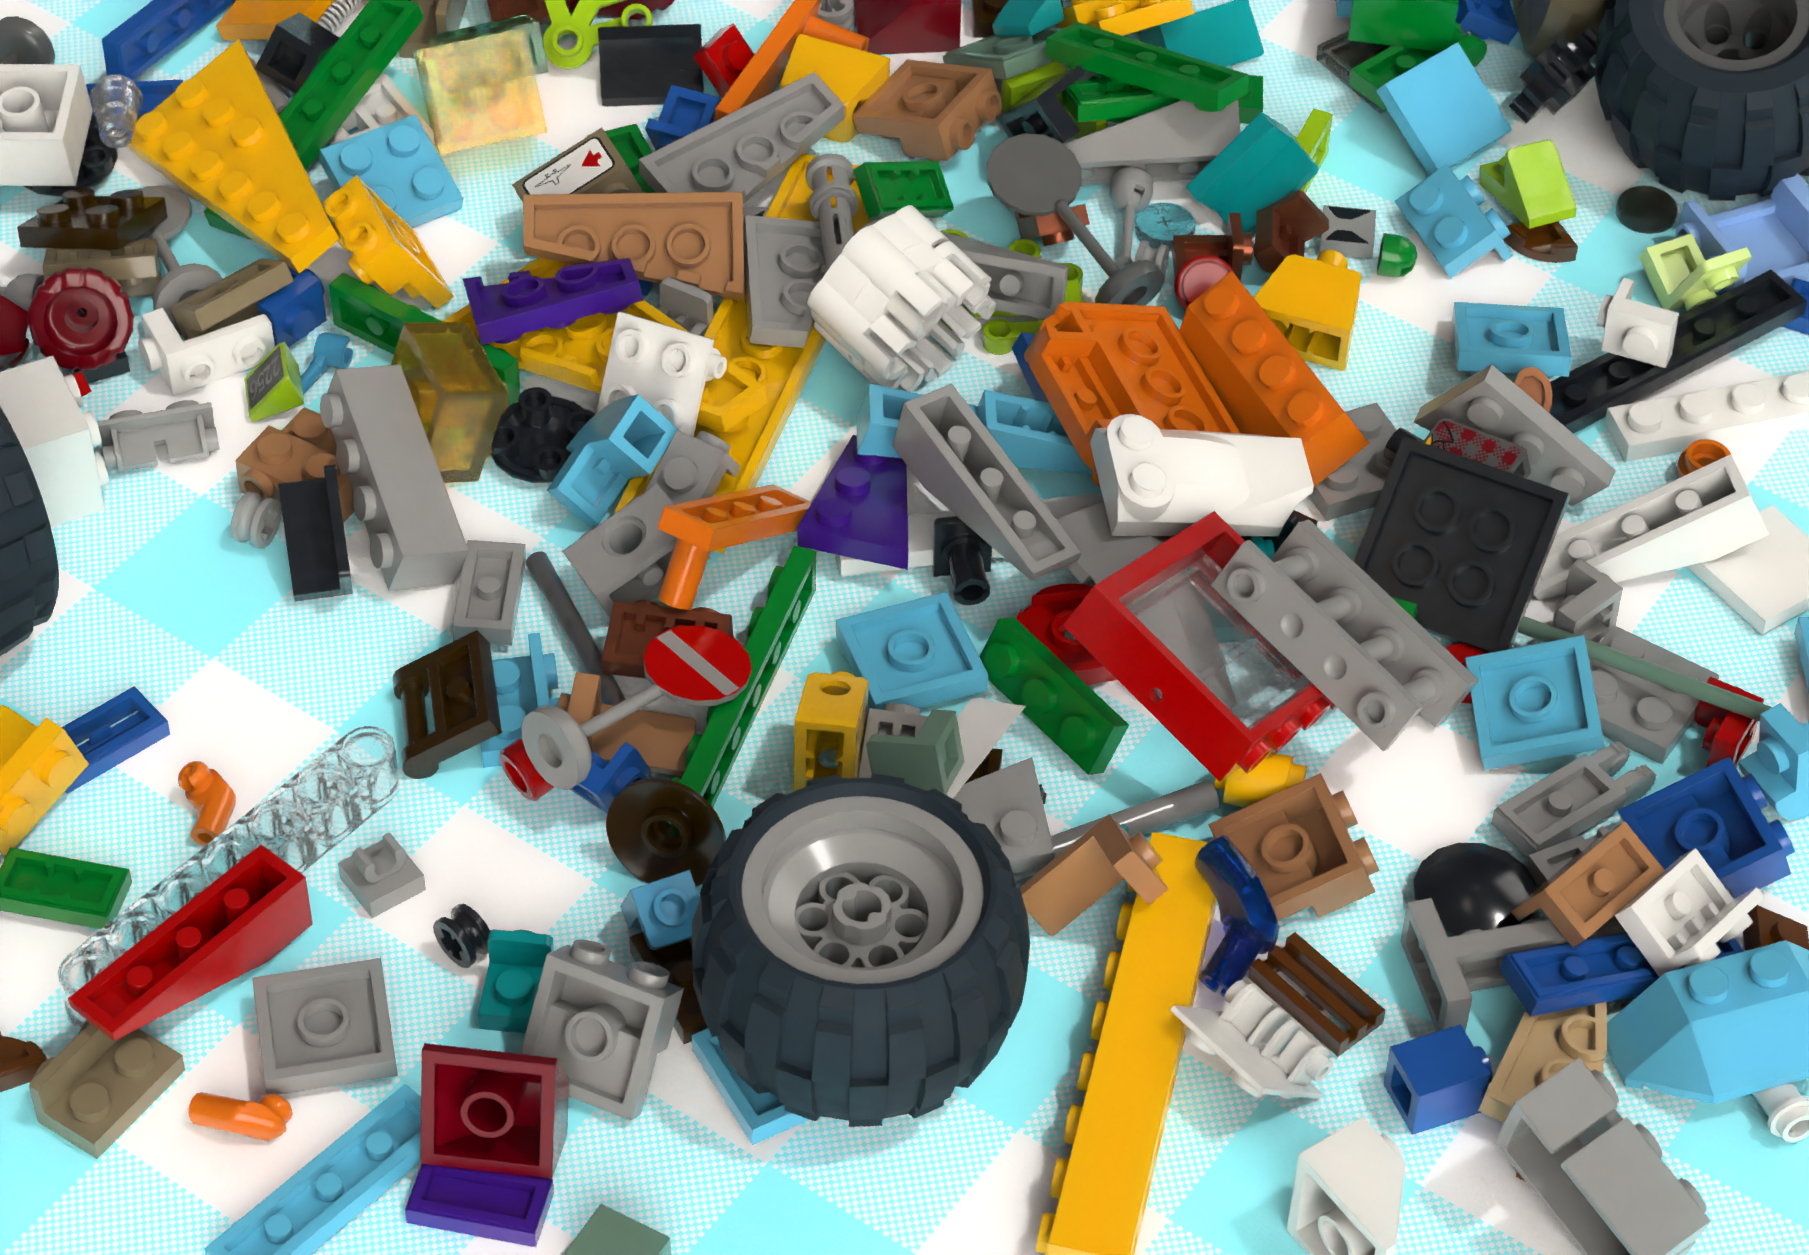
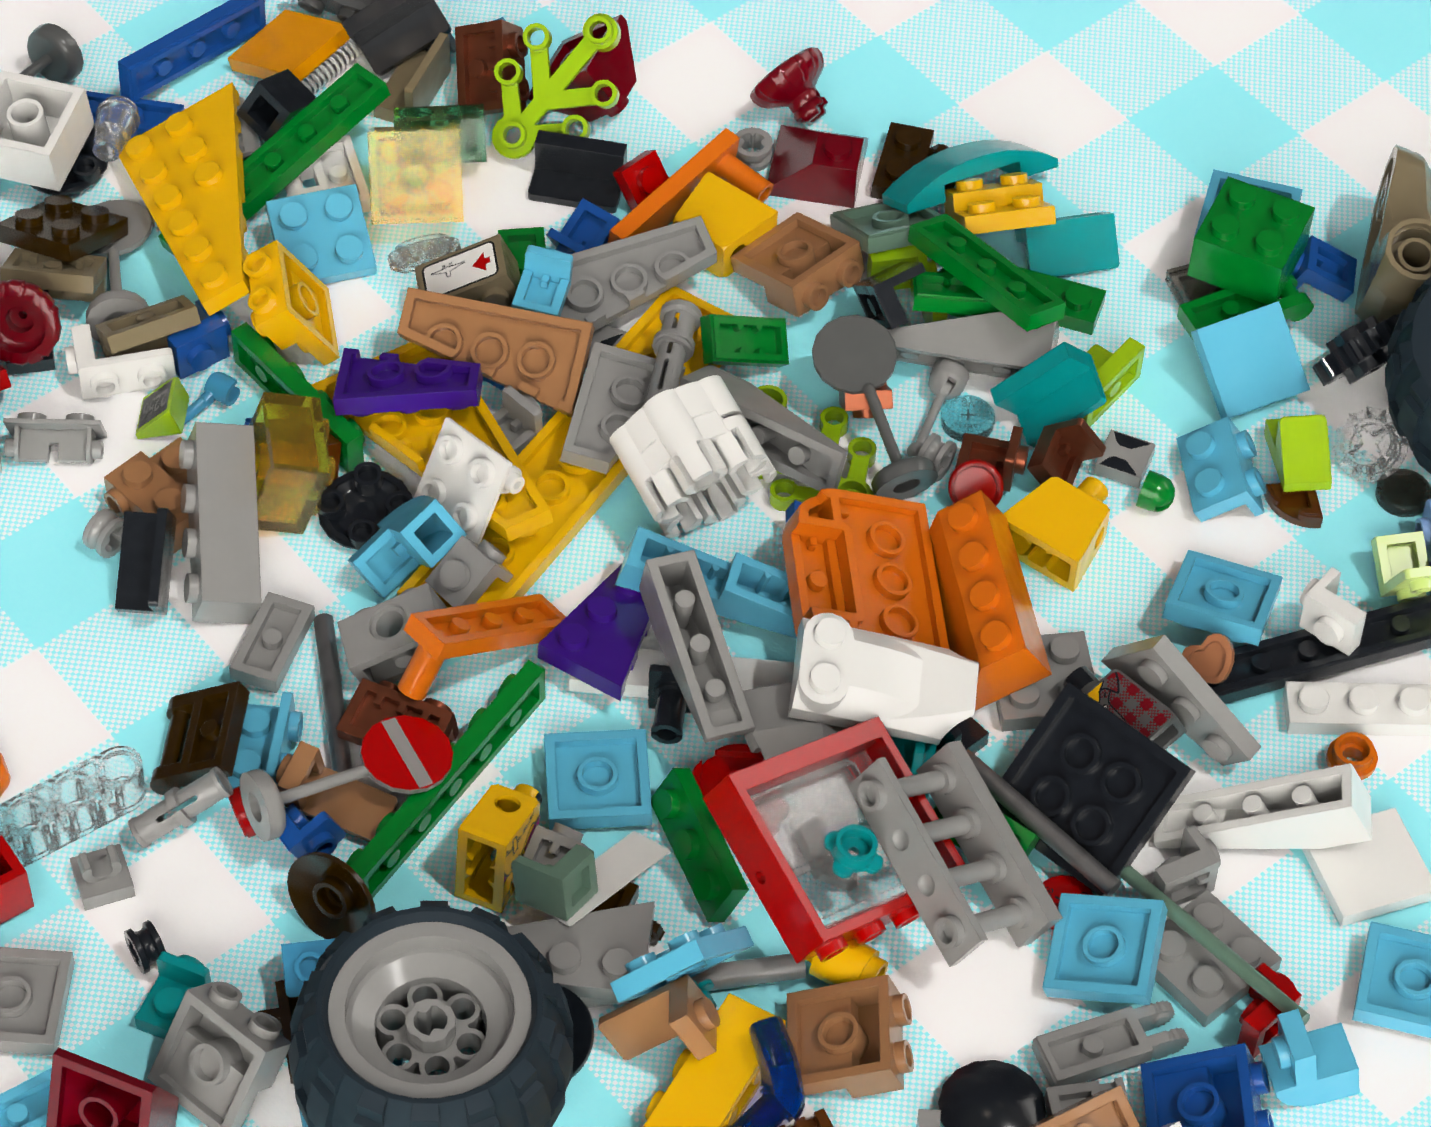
camera: 15 degrees right, 5 degrees up
(421, 810) = (152, 823): none -> light grey pin
(509, 167) = (421, 250): none -> clear gear
(671, 158) = (544, 281): none -> medium azure bracket
(1112, 789) = (686, 954): none -> medium azure plate
(1245, 646) = (856, 839): none -> teal plate
(1441, 605) = (1047, 830): none -> flat silver bar
(1600, 189) = (1363, 465): none -> clear gear

